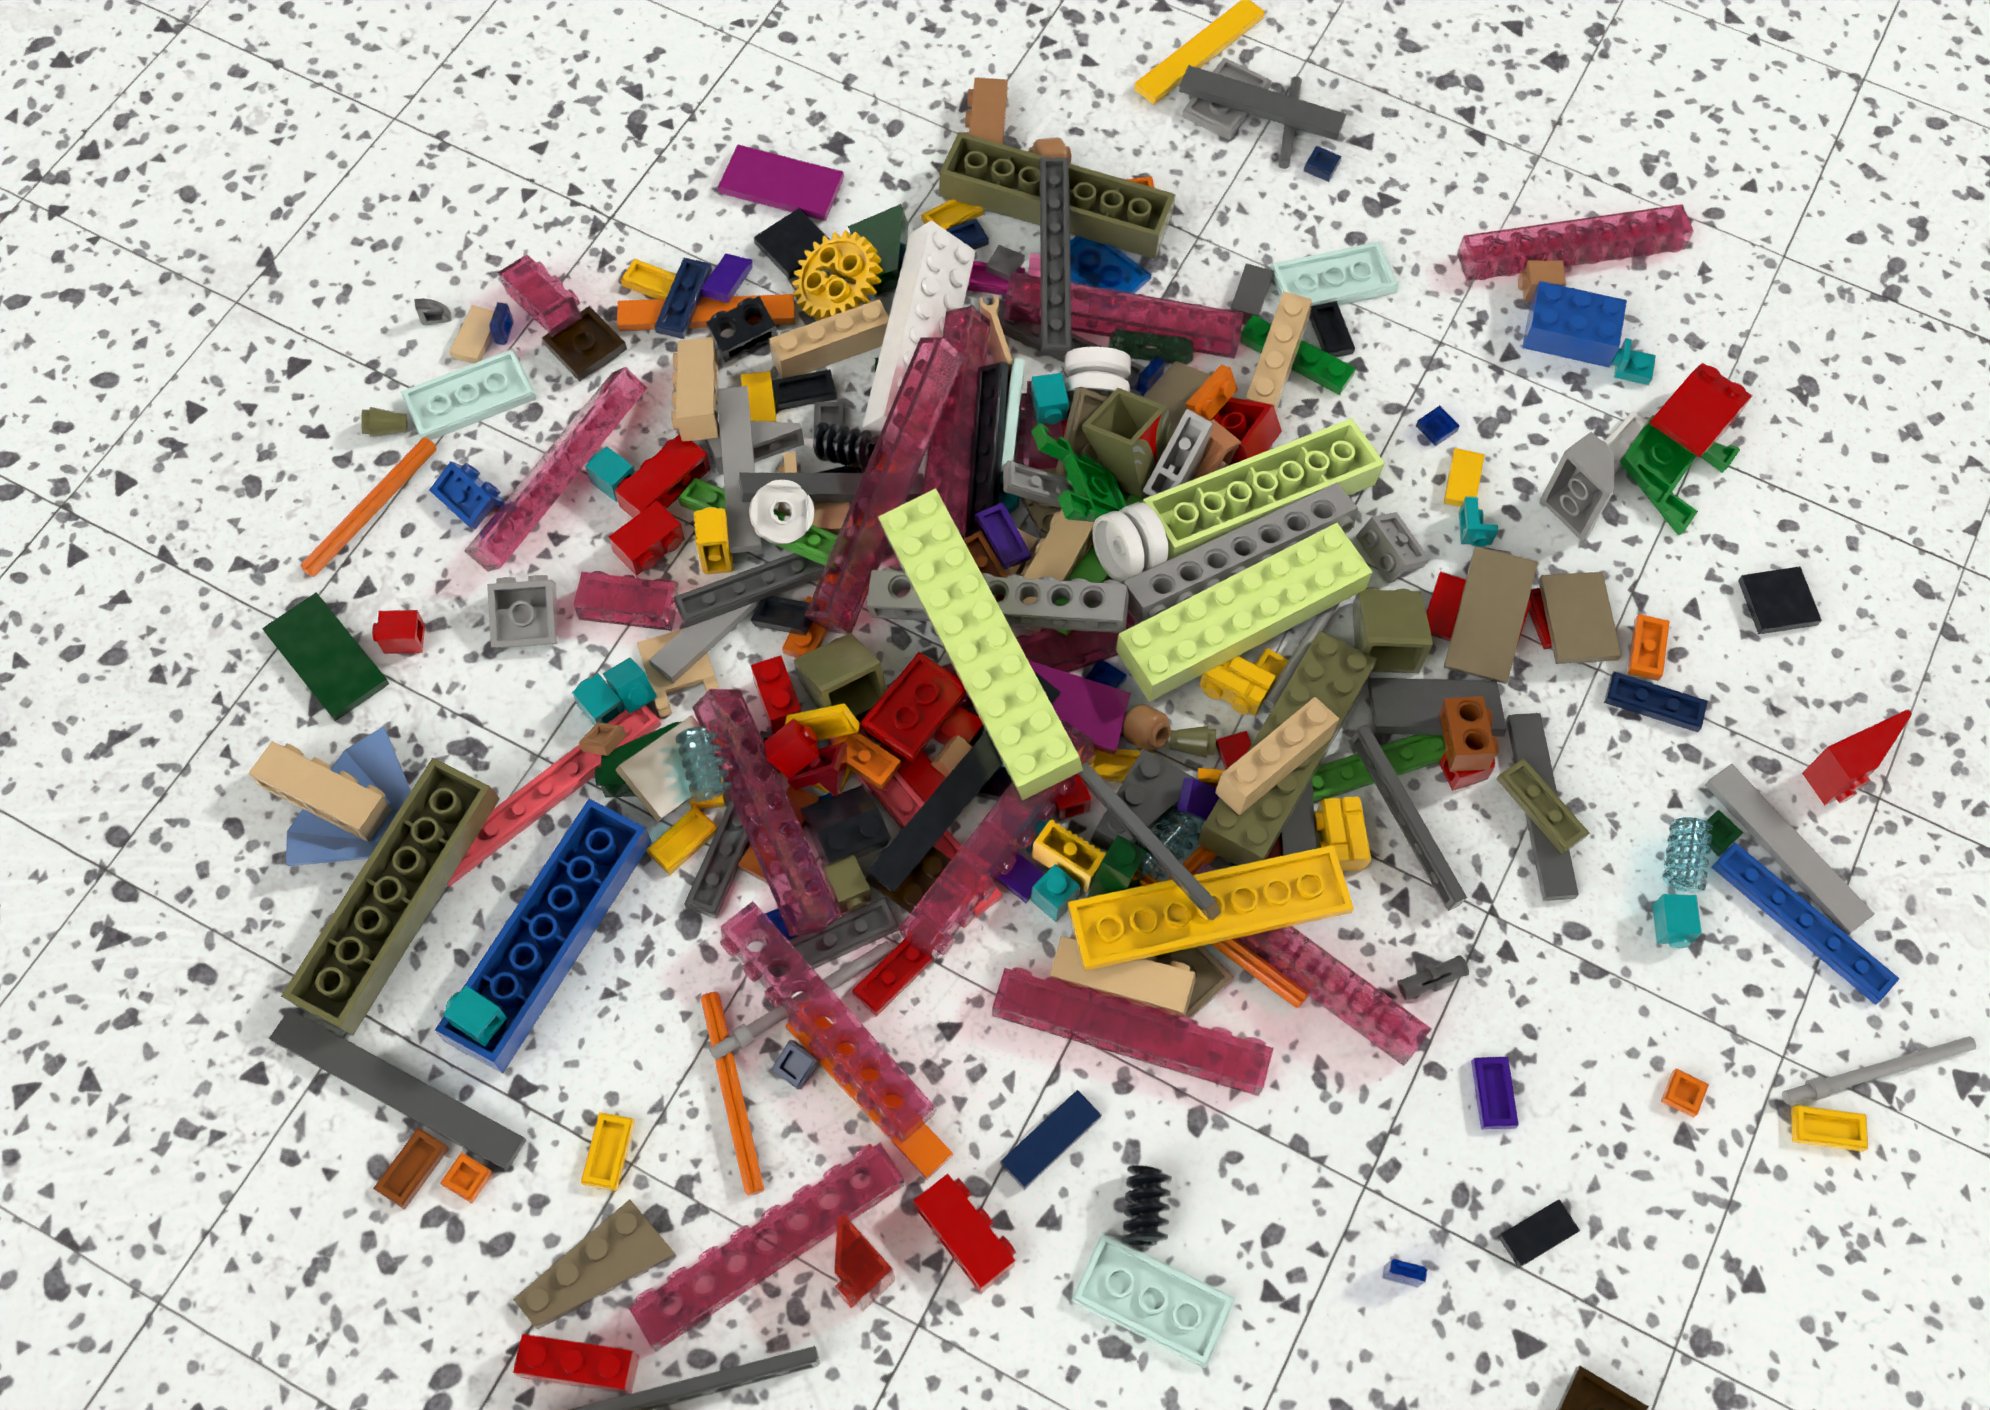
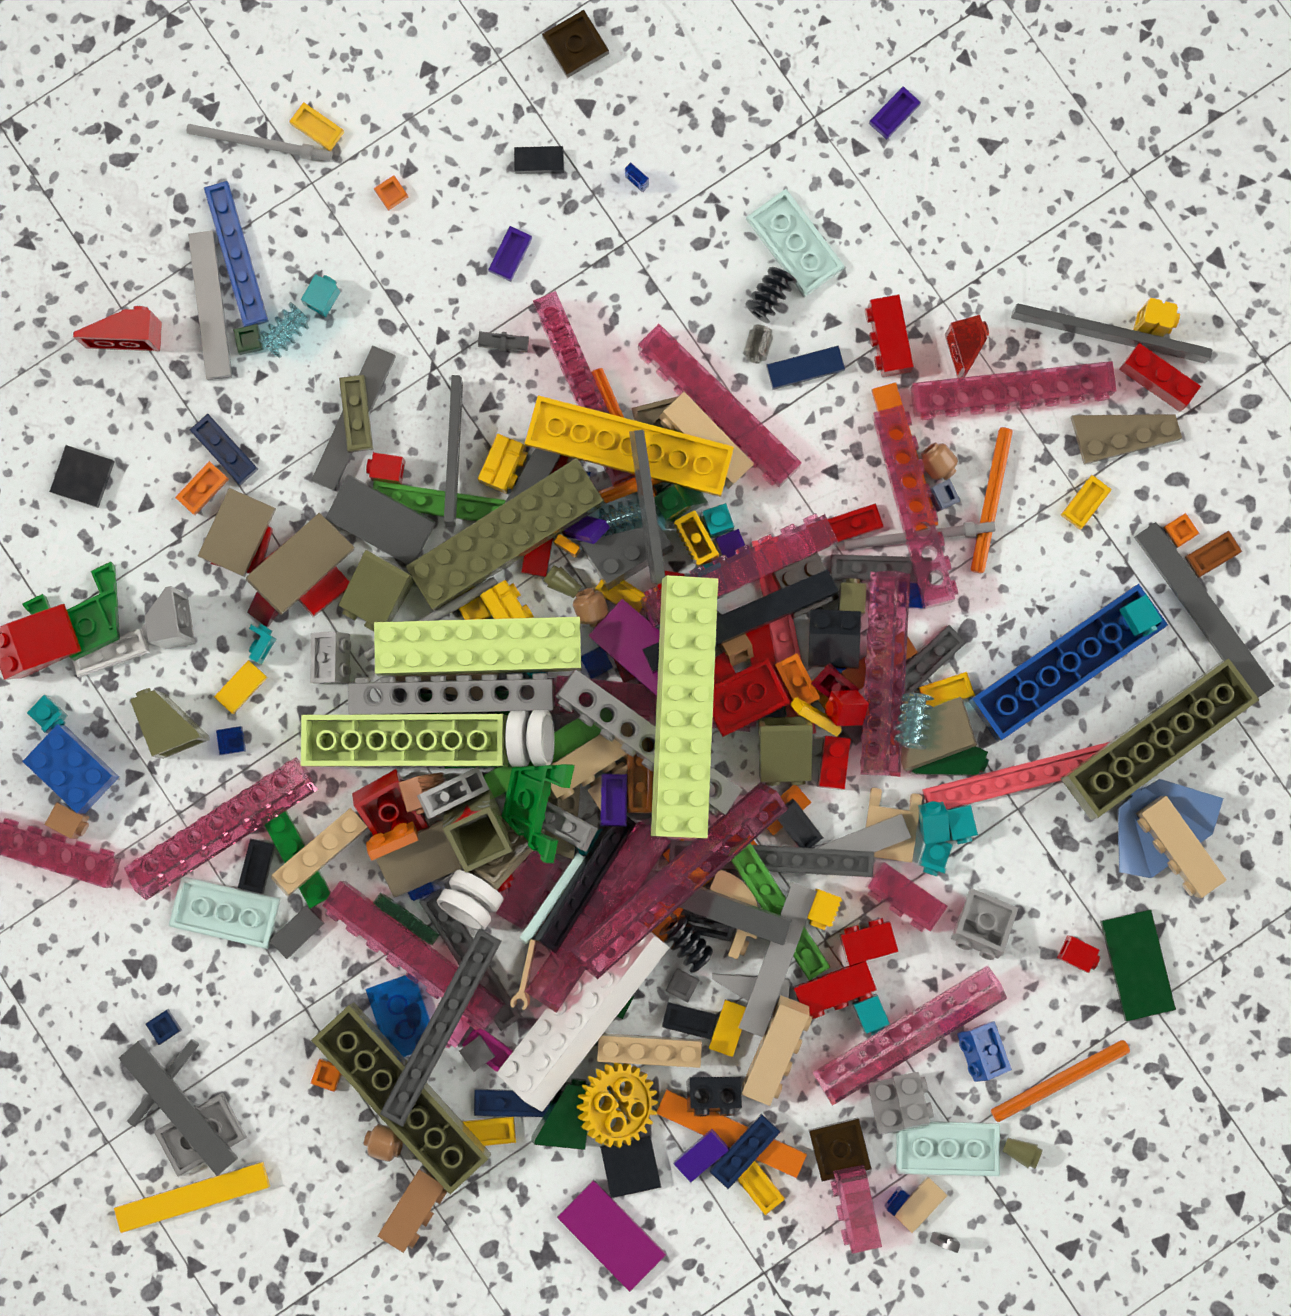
camera: 145 degrees left, 20 degrees up
(537, 407) = (900, 1103): none -> light grey plate
(602, 739) = (971, 787): medium nougat tile -> none
(610, 650) = (935, 857): none -> teal bracket
(794, 499) = (773, 907): white plate -> none
(821, 1101) = (939, 461): none -> medium nougat head
(1049, 398) = (517, 896): teal brick -> none
(1126, 1134) = (758, 344): none -> clear smoke brick
(1276, 756) = (527, 517): tan brick -> none
(1391, 336) = (220, 829): none -> clear pink brick
(1461, 733) = (387, 482): dark orange brick -> none
(1514, 399) = (165, 724): none -> olive slope

